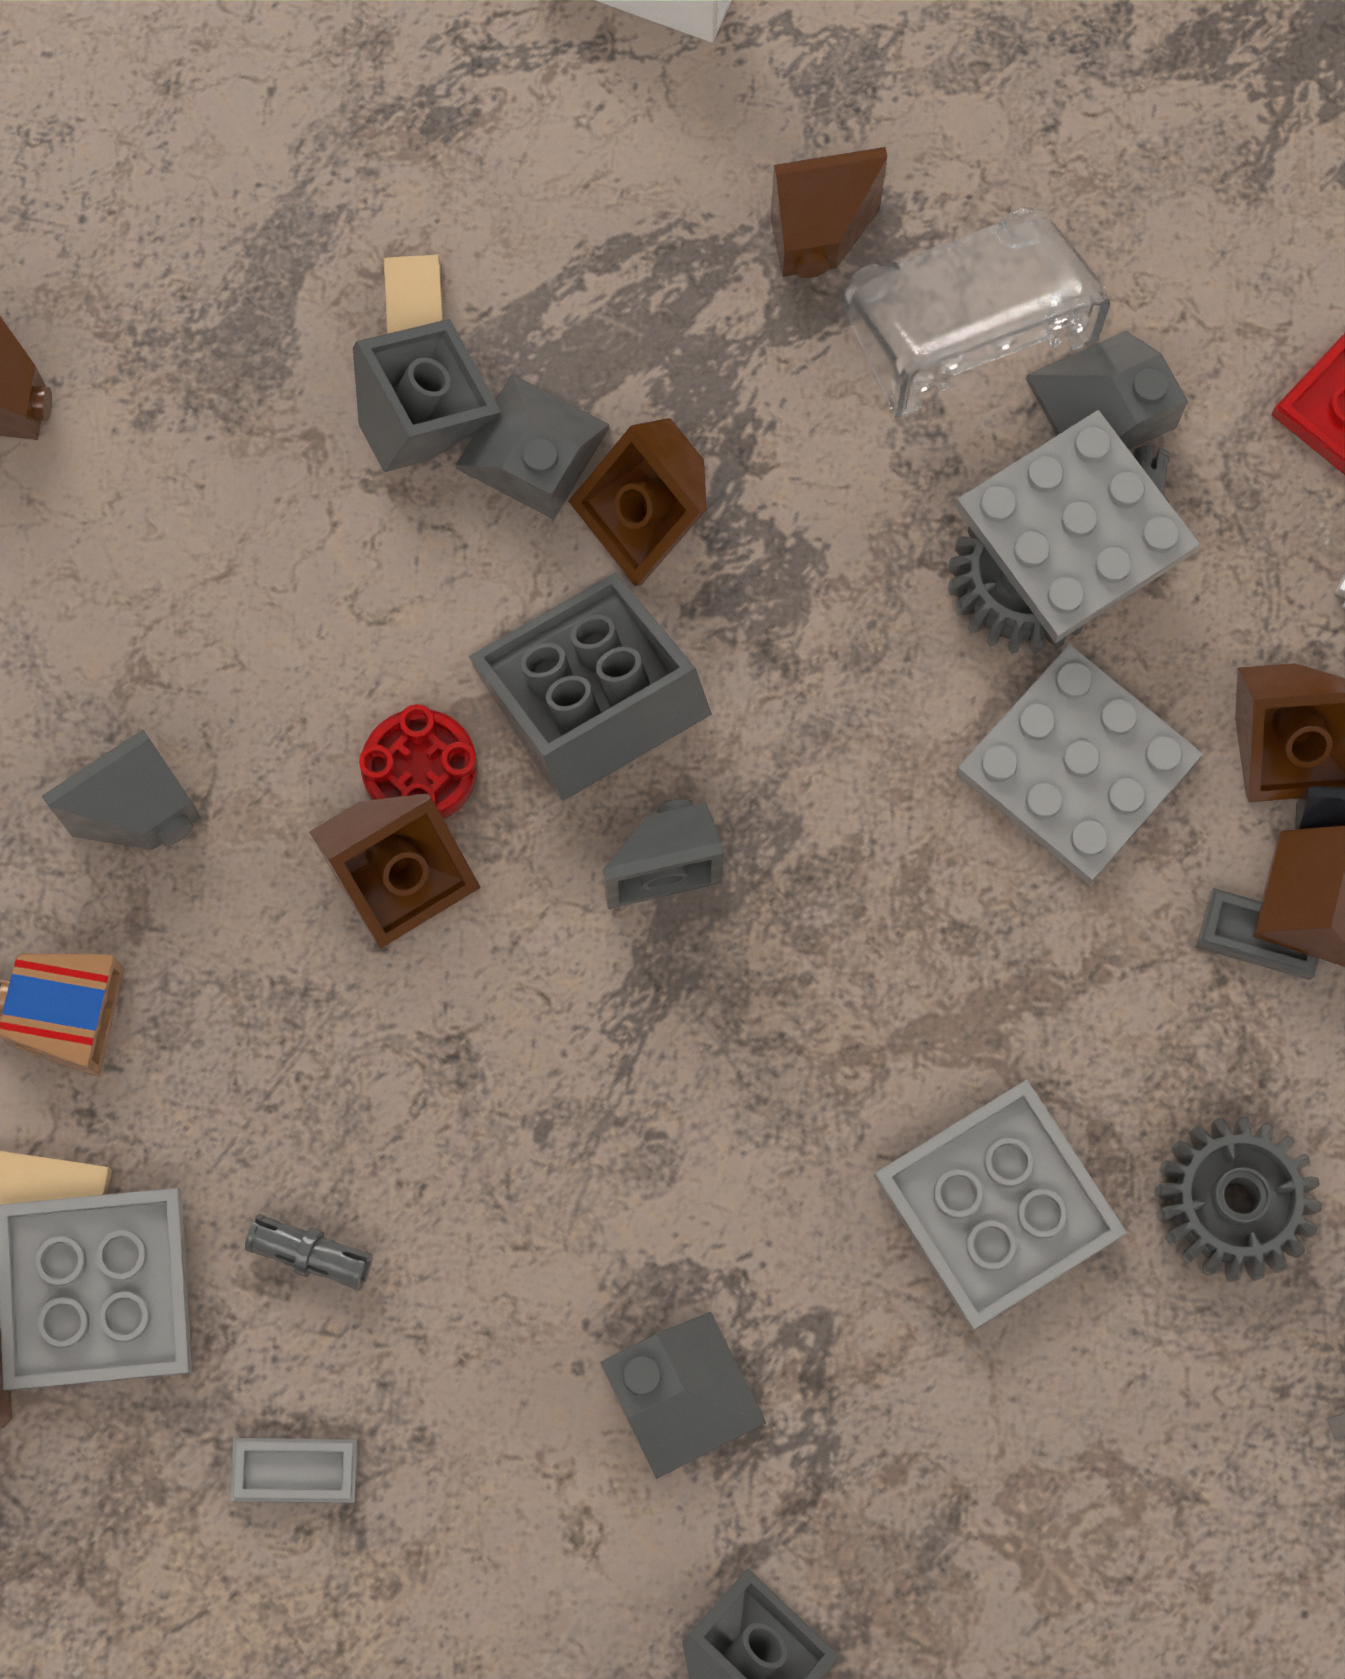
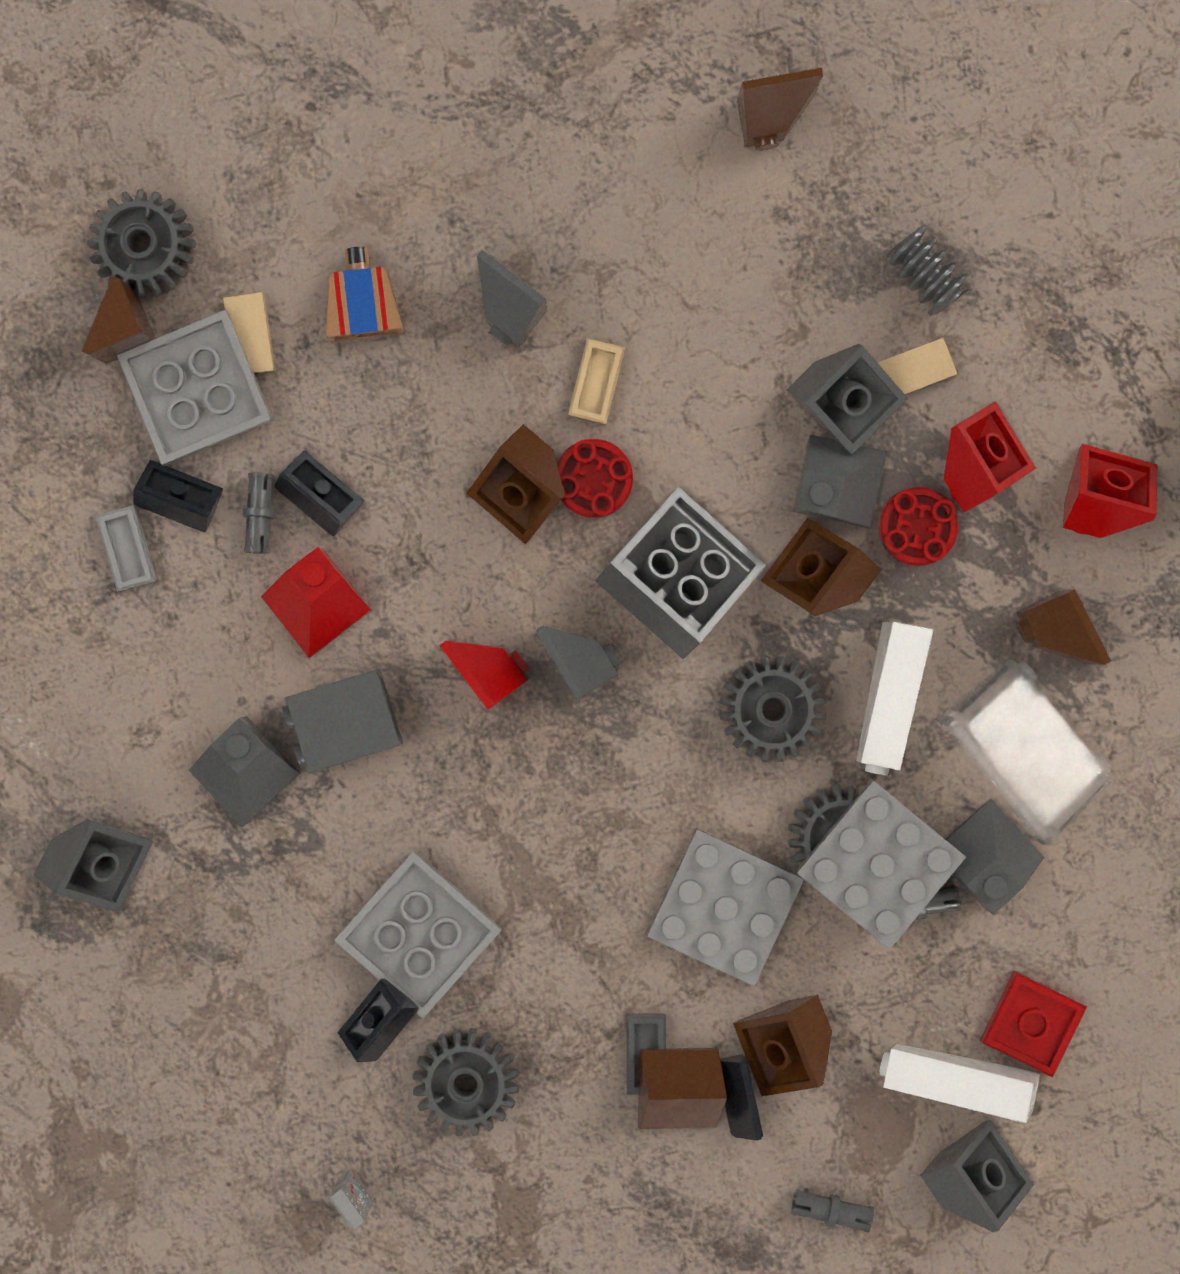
camera: 80 degrees right, 15 degrees up
(243, 1370) = (177, 496): none -> black slope
(285, 723) = (596, 381): none -> tan tile
(288, 247) = (928, 271): none -> dark grey piece
(309, 1160) = (318, 493): none -> black slope
(464, 1209) = (315, 601): none -> red slope
(566, 251) = (983, 458): none -> red slope
(627, 362) = (918, 526): none -> red tile
(641, 986) = (487, 669): none -> red slope
(652, 1219) = (342, 721): none -> dark grey brick
(661, 113) = (1109, 493): none -> red slope
(825, 583) = (796, 714): none -> dark grey gear
(844, 448) = (893, 695): none -> white slope
(1113, 1304) = (377, 1022): none -> black slope

